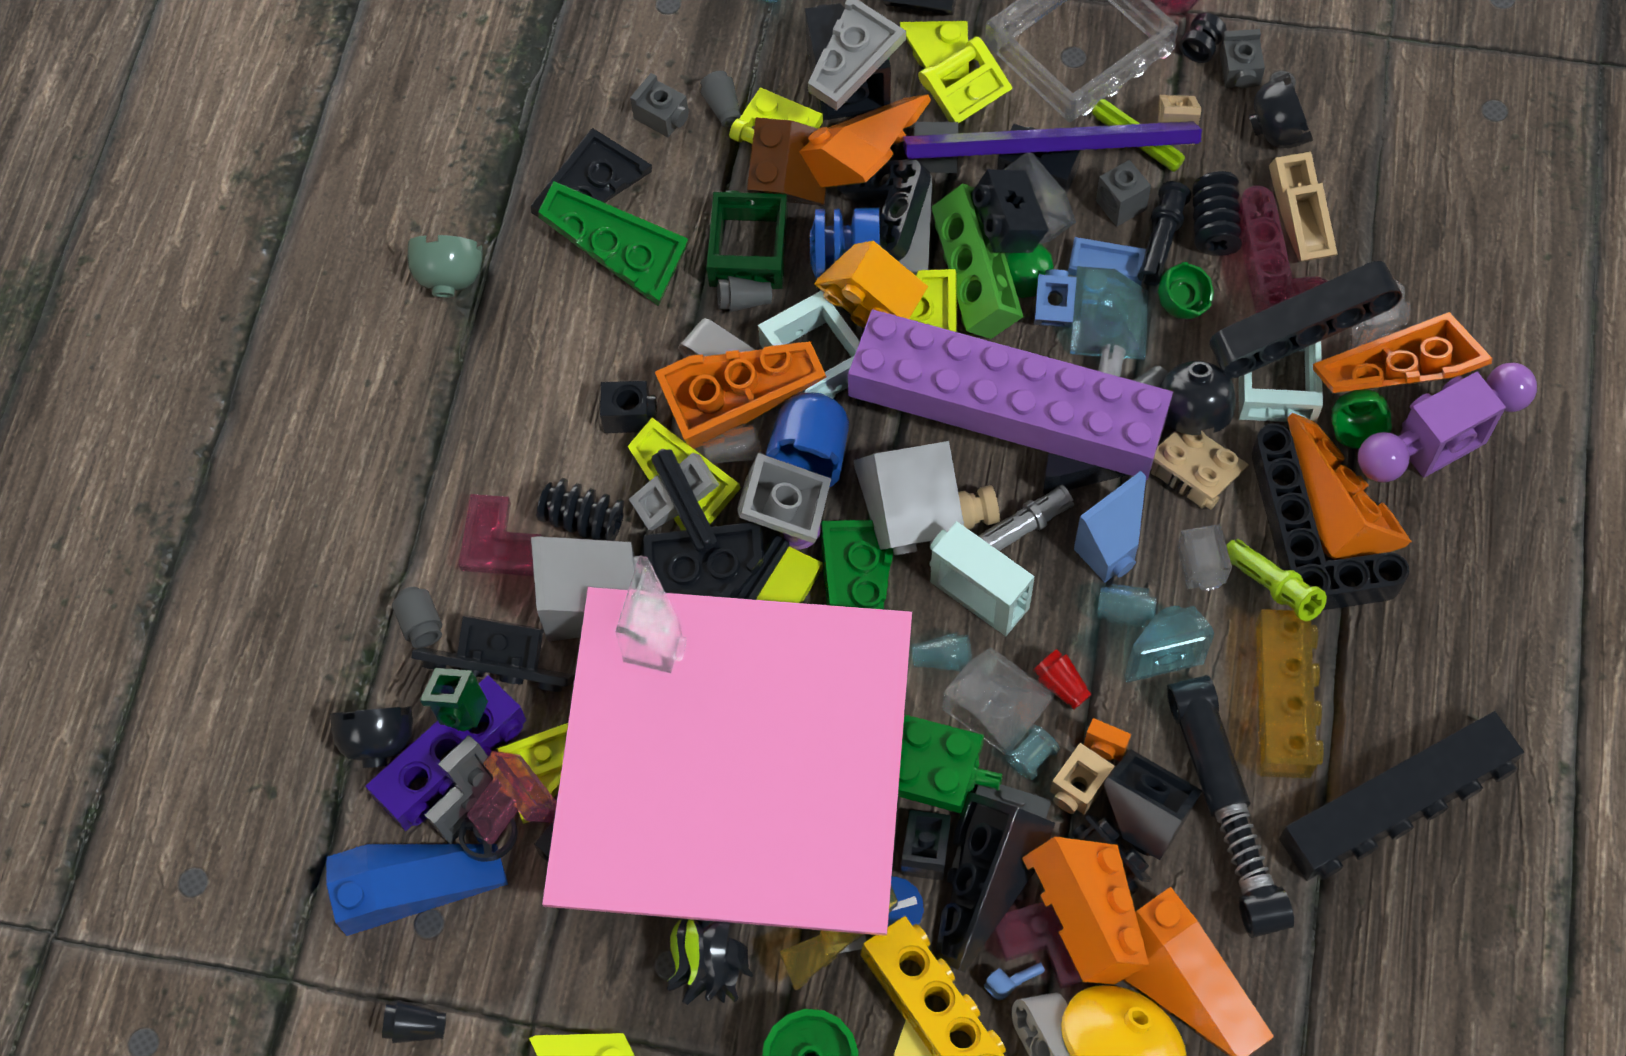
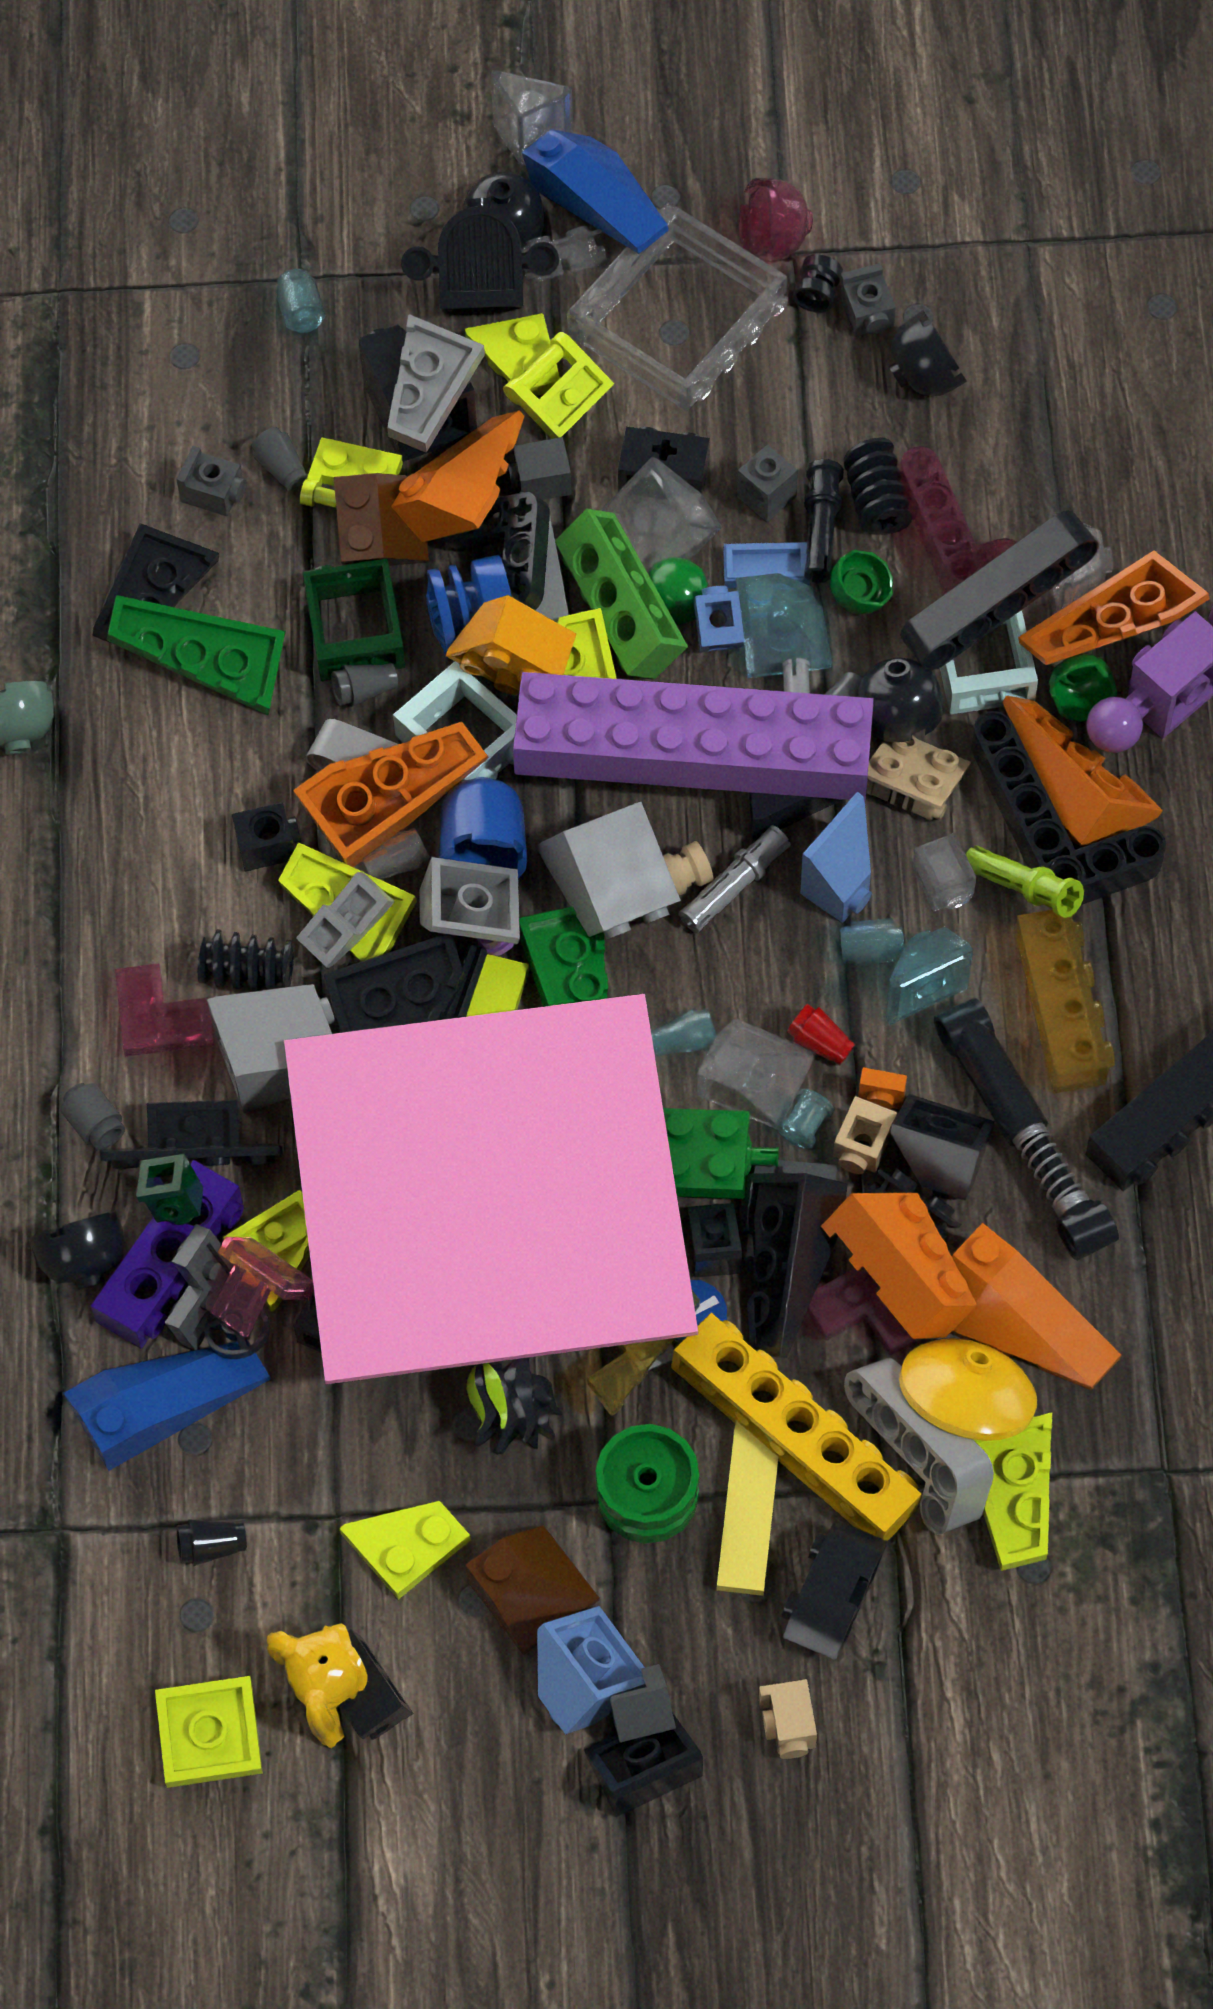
camera: 15 degrees left, 0 degrees up
(648, 625) = (369, 1062): clear slope -> none
(684, 500) = (361, 925): black axle -> none
(980, 578) = (707, 944): light aqua window -> none
(1001, 986) = (827, 1365): medium blue hand -> none
(1009, 211) = (647, 530): black brick -> none
(1051, 139) = (674, 439): dark purple tile -> none
(1164, 154) = (768, 411): lime axle -> none
(1178, 109) = (810, 384): tan slope -> none
(1303, 206) = (971, 460): tan slope -> none

